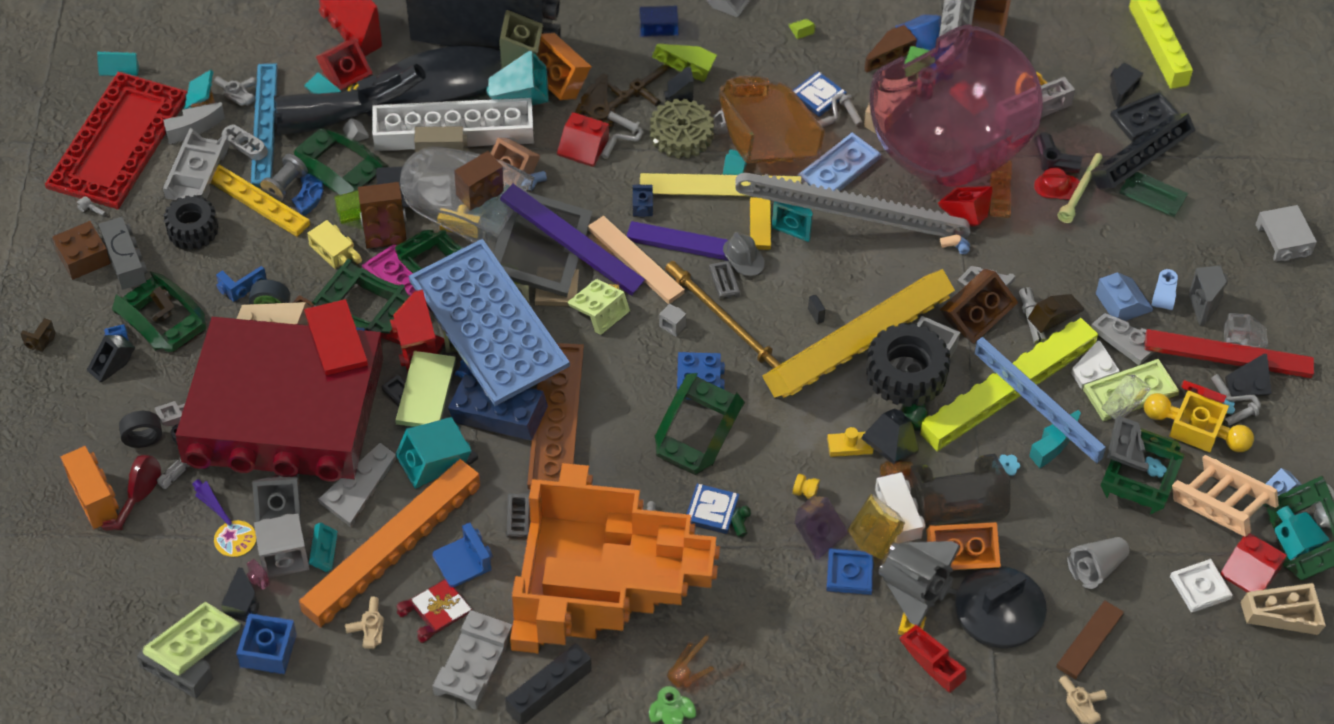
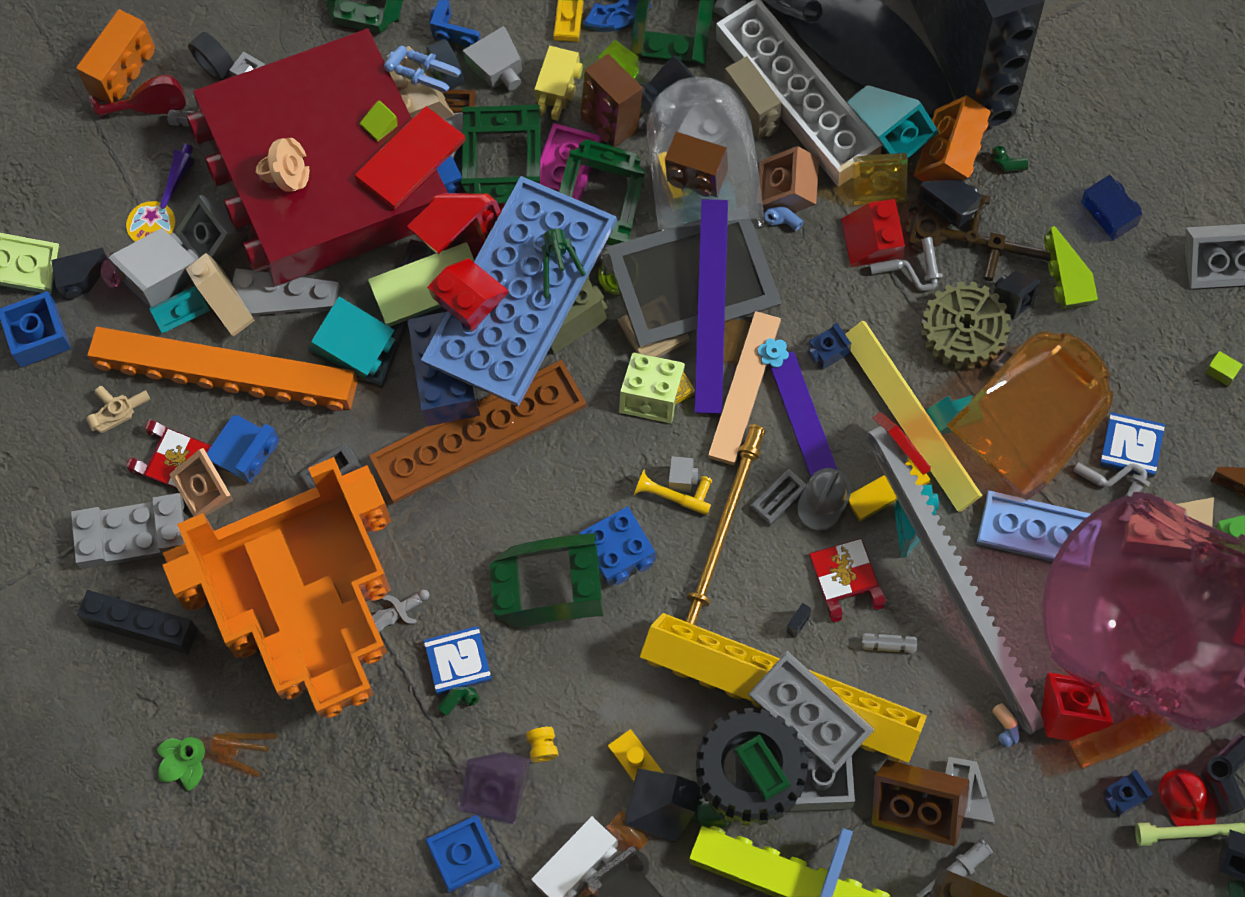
camera: 65 degrees right, 15 degrees up
(251, 313) = (417, 76): none -> medium blue piece
(288, 402) = (285, 165): none -> light nougat tile
(290, 269) = (495, 60): none -> light grey torso
(293, 339) = (379, 121): none -> lime slope
(335, 512) = (220, 293): none -> tan slope
(472, 347) = (467, 292): none -> red slope
(474, 591) = (200, 484): none -> light nougat slope
(478, 277) = (556, 246): none -> dark green plant
(518, 37) = (938, 78): olive slope -> none
(550, 114) = (879, 178): none -> clear yellow plate
(589, 53) = (1007, 163): none -> dark green arm
(594, 88) = (951, 199): none -> black slope
(624, 230) = (768, 357): none -> medium azure plant
(663, 343) = (693, 503): none -> yellow piece
(727, 193) = (902, 443): none -> red tile
(802, 273) = (845, 573): none -> flag
(862, 273) = (889, 643): none -> light grey axle
(876, 527) = (522, 851): clear yellow slope -> none
(878, 313) = (815, 711): none -> light grey tile
(919, 348) = (762, 768): none -> dark green tile
(1037, 207) = (1136, 787): none -> dark blue brick

